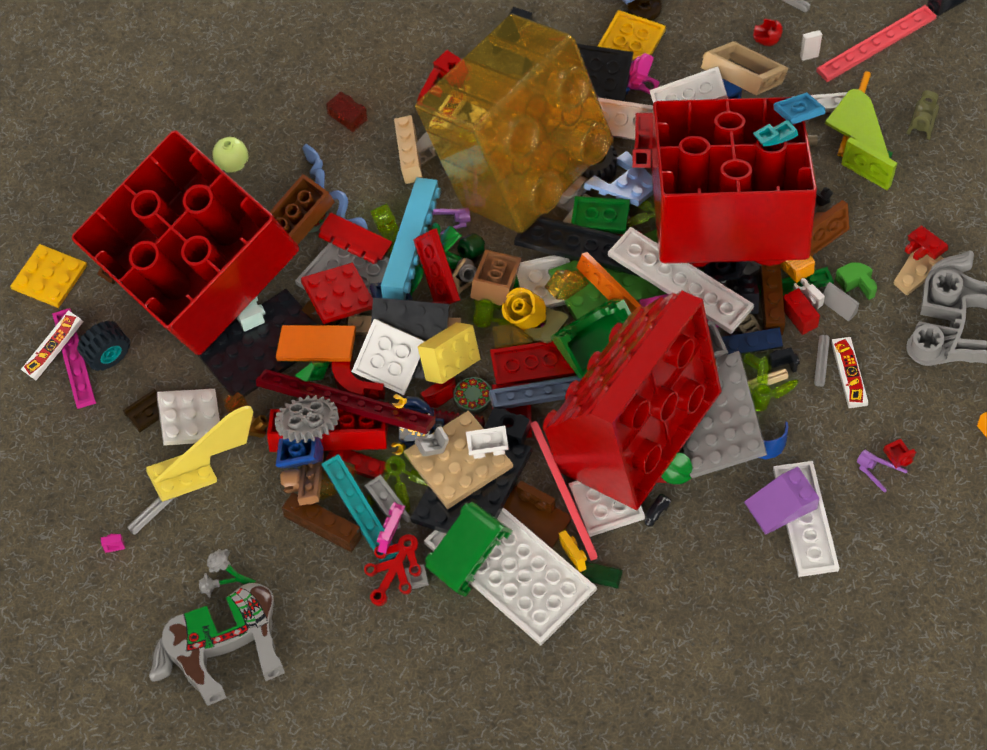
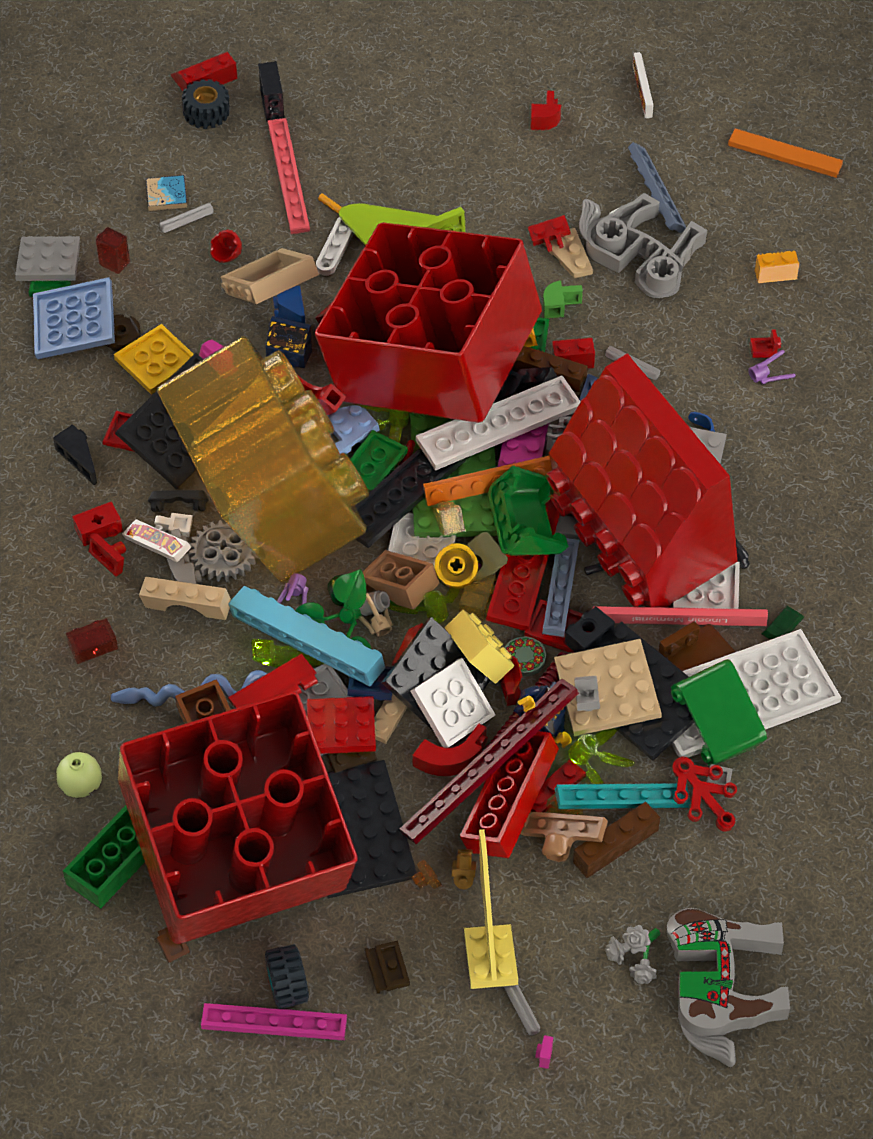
camera: 70 degrees left, 5 degrees down
(49, 275) = (138, 1017): yellow plate -> none
(52, 345) = (249, 1036): tile -> none
(187, 415) = (419, 925): white plate -> none
(297, 454) = (534, 821): blue slope -> none
(306, 419) = (503, 796): light grey gear -> none
(313, 371) = (429, 782): green slope -> none
(316, 343) = (395, 767): orange tile -> none
(384, 496) = (619, 772): light grey hinge -> none
(390, 525) = (661, 772): dark pink hinge -> none
(436, 267) = (369, 618): red tile -> none
(487, 441) = (613, 645): white bracket -> none
(571, 548) = (753, 633): yellow plate -> none
(695, 87) = (284, 322): white plate -> none
(781, 133) = (427, 248): teal slope -> none
(783, 501) = (779, 445): medium lavender slope -> none
(799, 108) = (403, 222): dark azure plate -> none
(811, 45) = (268, 218): white tile -> none
(811, 292) = (558, 334): white plate -> none
(811, 533) = (798, 442): white plate -> none
(840, 302) = (576, 322): light grey slope -> none
(849, 372) = (656, 348): tile -> none
(925, 114) = (401, 174): olive piece -> none

